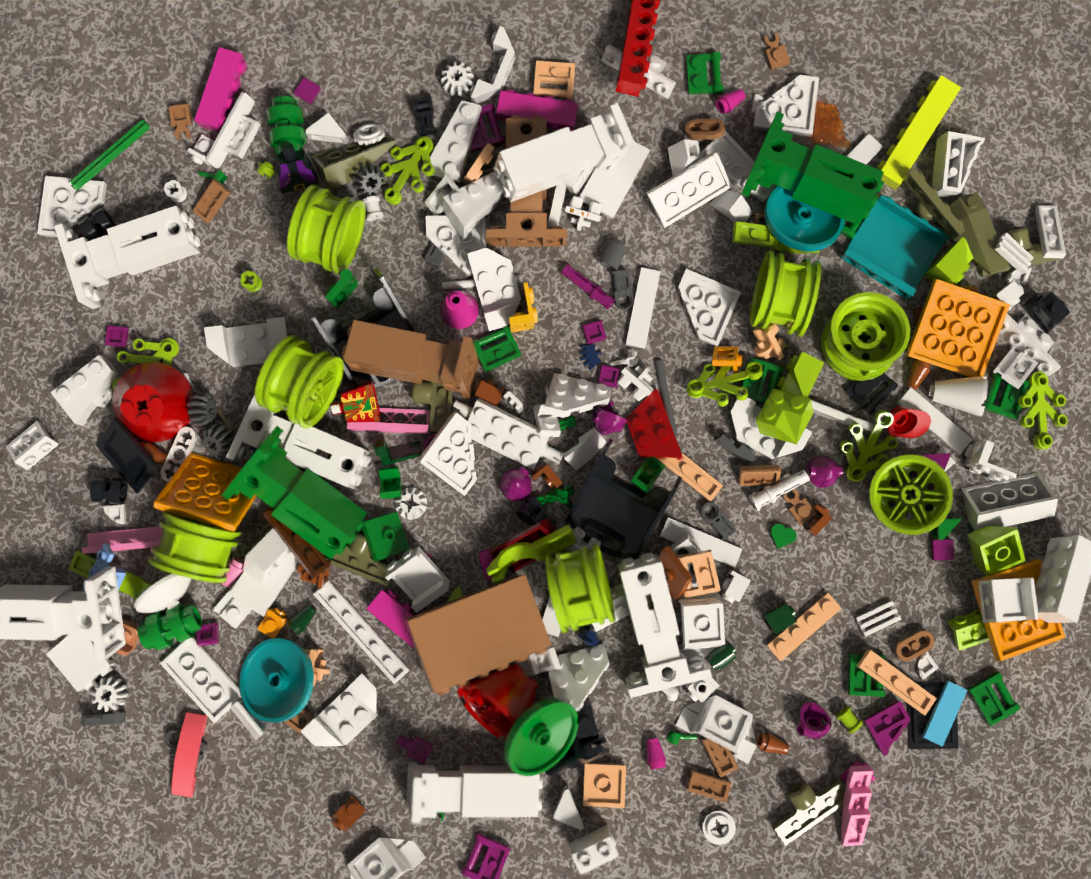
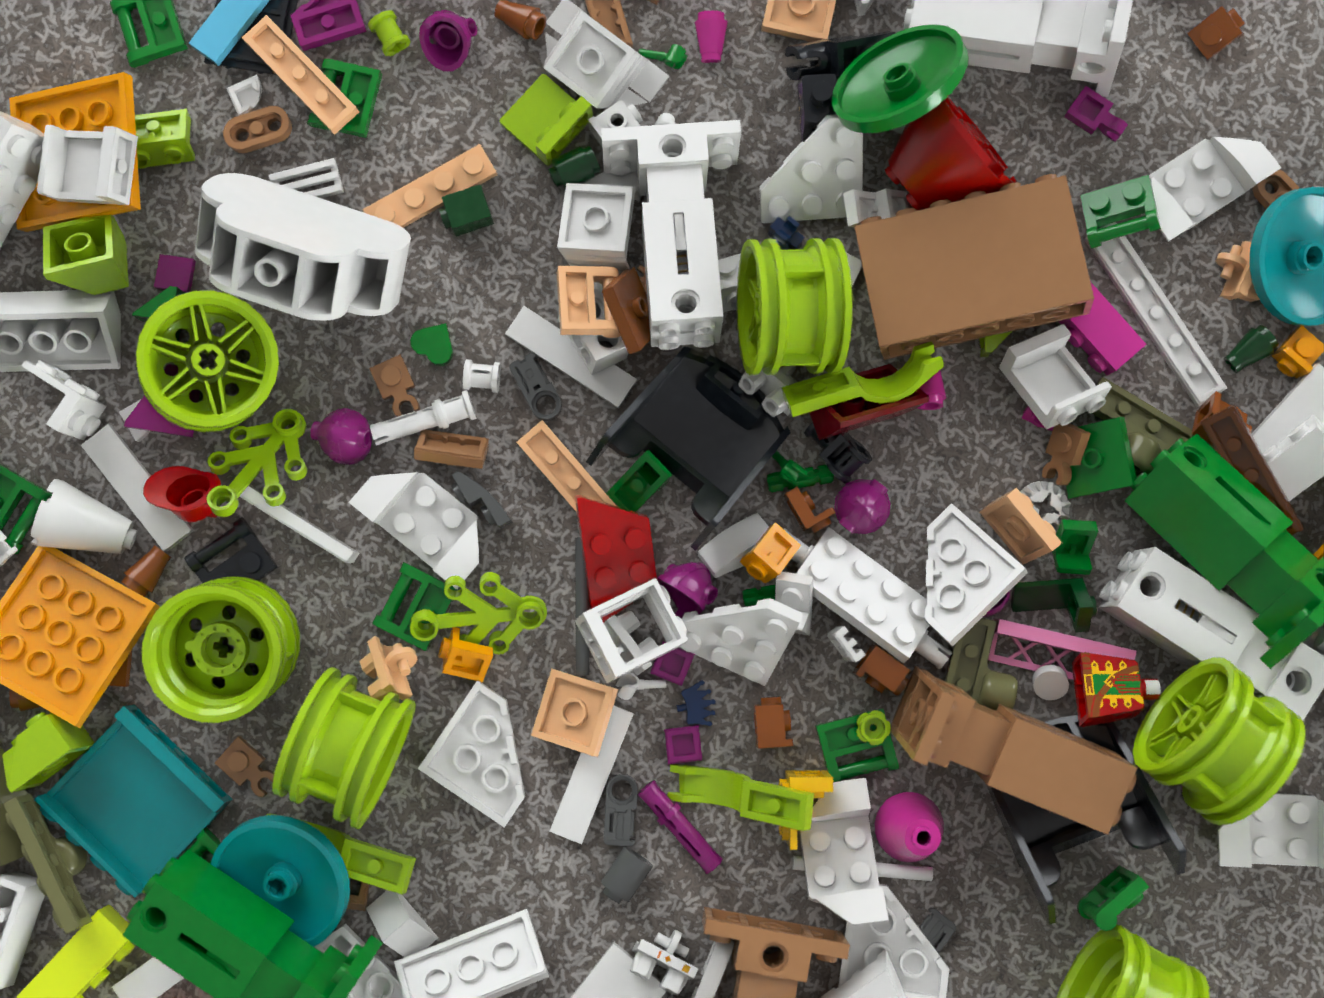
camera: 170 degrees left, 0 degrees up
(245, 281) = (1255, 940): lime bush -> none
(392, 403) = (1050, 682): none -> white tile
(394, 692) = (1116, 204): none -> green plate
(403, 539) = (1067, 449): none -> medium nougat plate
(429, 492) = (1020, 526): none -> light nougat plate
(490, 354) = (882, 727): none -> lime plate
(547, 352) = (771, 723): none -> dark orange brick
(550, 306) = (750, 797): none -> lime piece
(565, 445) = (770, 554): none -> light orange bracket
(654, 377) = (603, 647): none -> white window
(659, 338) = (574, 712): none -> light nougat plate
(734, 587) = (530, 273): white brick -> none
(744, 684) = (546, 119): none -> lime bracket
(750, 521) = (481, 376): none -> white bush
(784, 416) = (389, 535): lime slope -> none
(800, 375) = (348, 600): lime slope -> none
(816, 524) = (370, 351): dark orange bracket -> none
(839, 277) = (242, 763): none -> medium nougat plate
(873, 571) = (298, 250): none -> white brick

